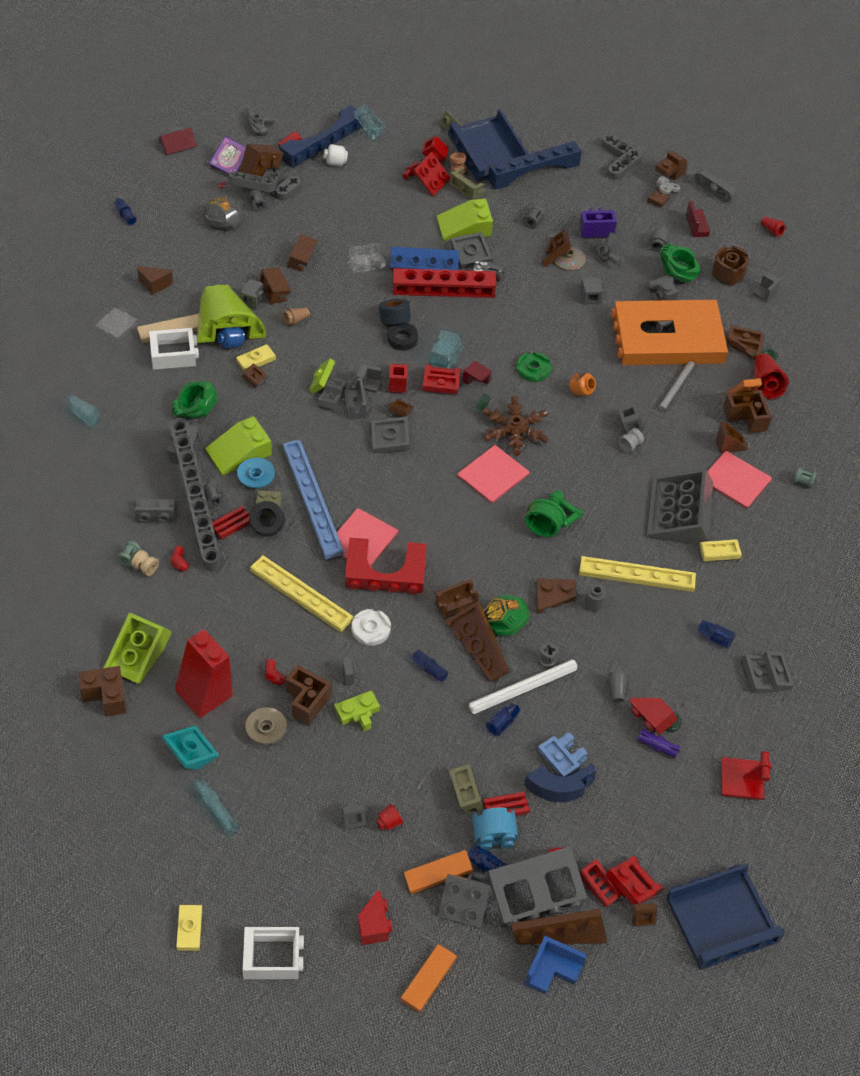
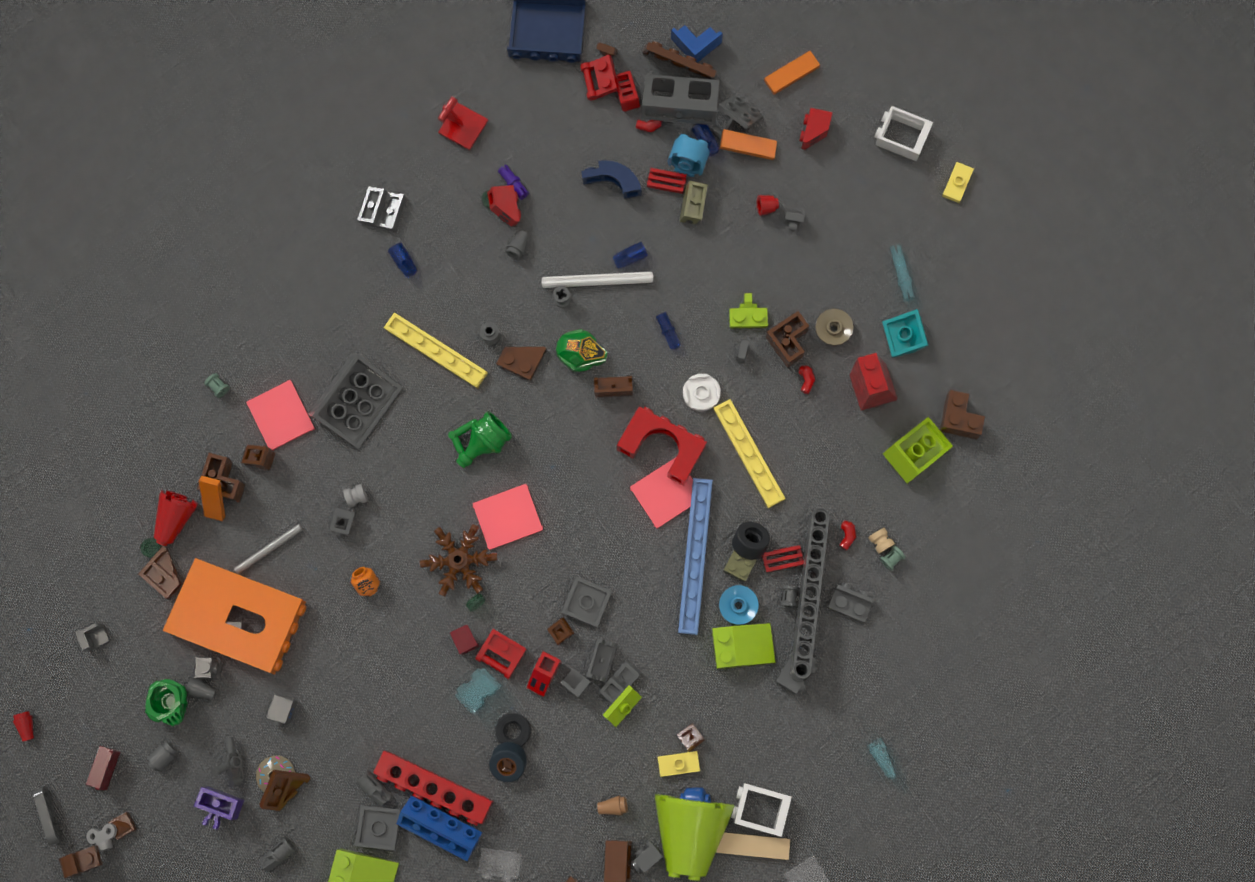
camera: 145 degrees left, 25 degrees up
(202, 400) = (766, 719): green helmet -> none
(476, 634) = (614, 334): reddish brown wing -> none
(533, 374) = (386, 631): green tile -> none
(559, 758) = (603, 202): medium blue plate -> none
(720, 550) = (346, 341): light yellow plate -> none
(730, 265) = (102, 676): reddish brown brick -> none

